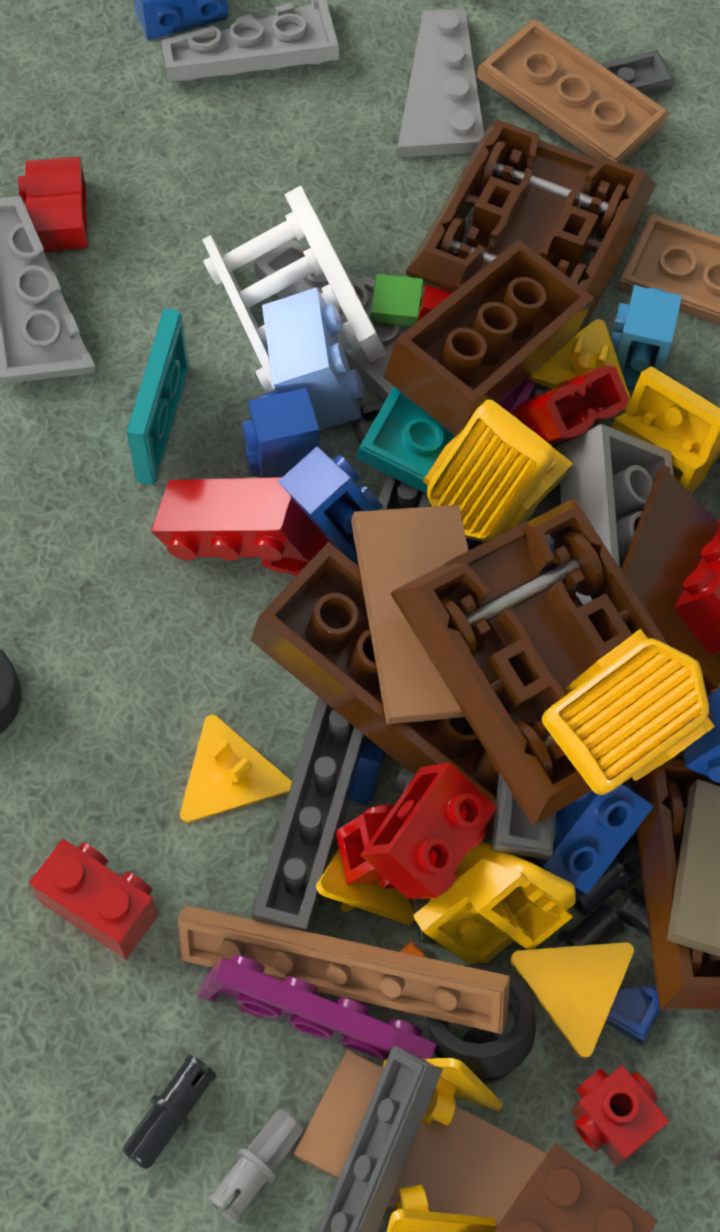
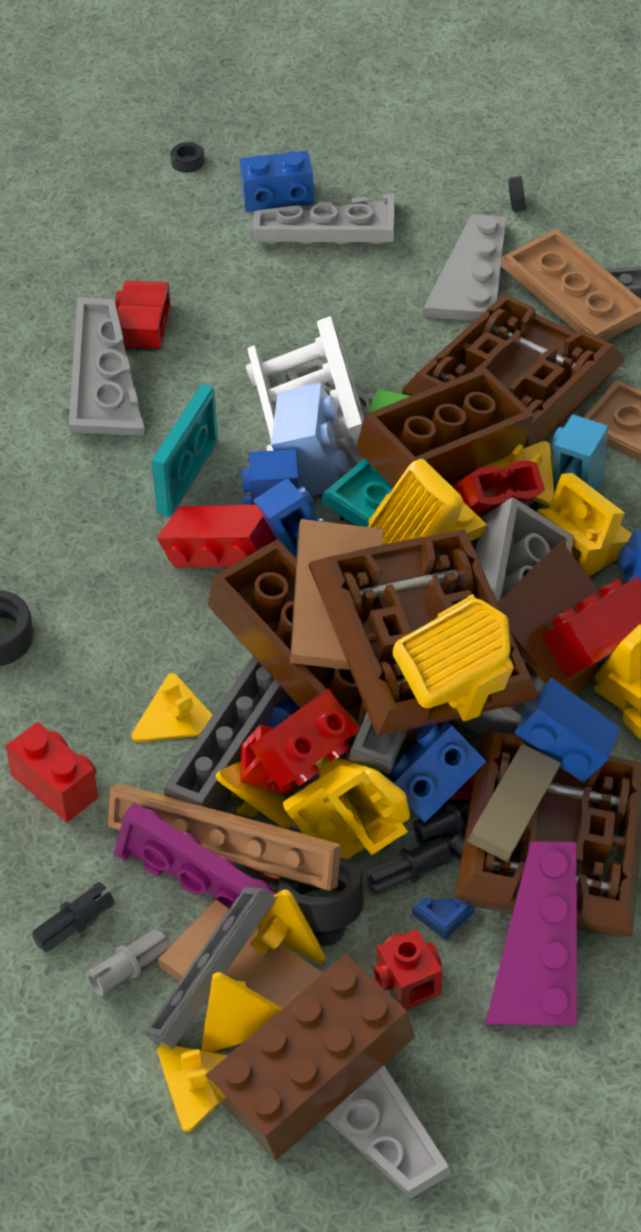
camera: 15 degrees right, 15 degrees down
(576, 986) = (400, 881): yellow piece -> none

